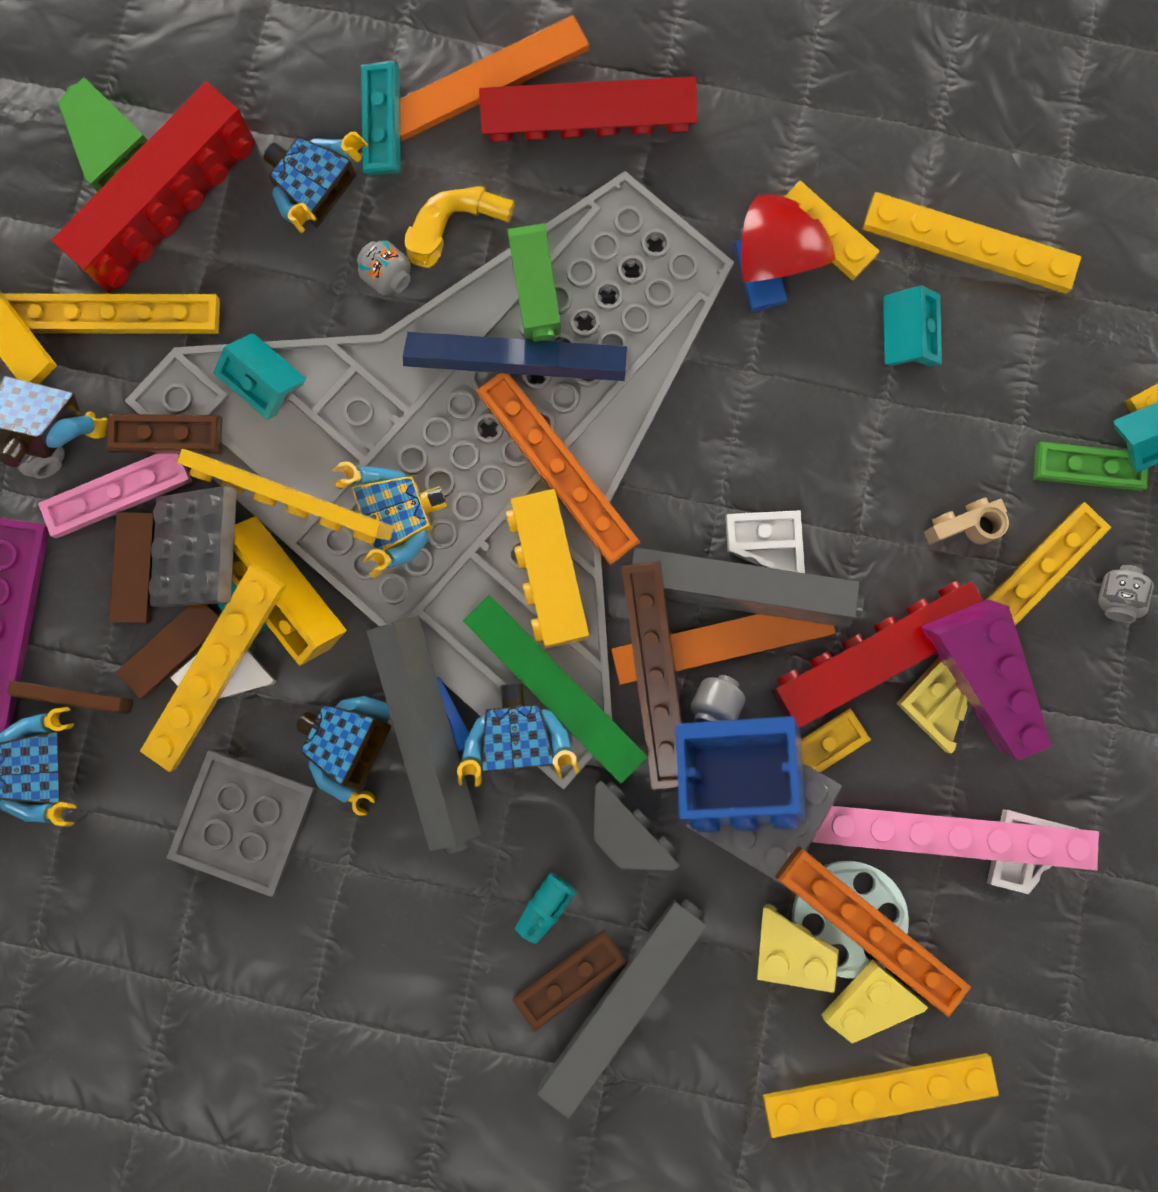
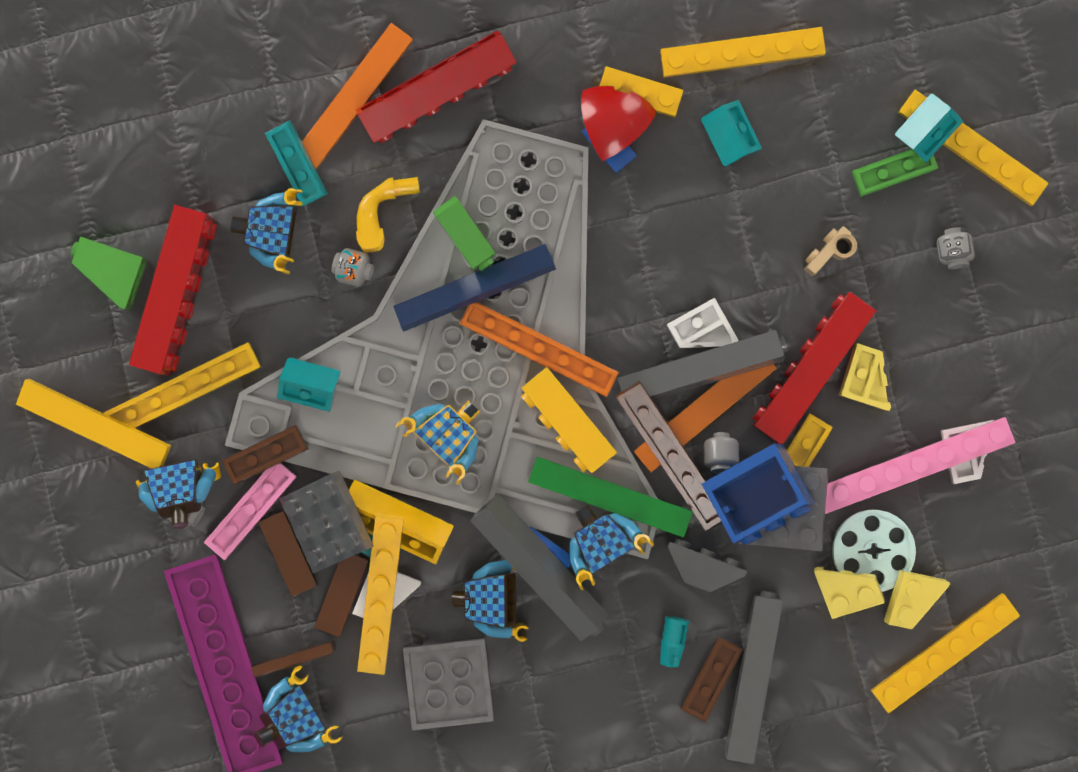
camera: 25 degrees left, 5 degrees up
(297, 502) = (362, 459): yellow plate -> none
(872, 931) = (891, 552): orange tile -> none
(992, 673) = (889, 347): magenta wedge -> none
(1051, 561) = (895, 253): yellow tile -> none

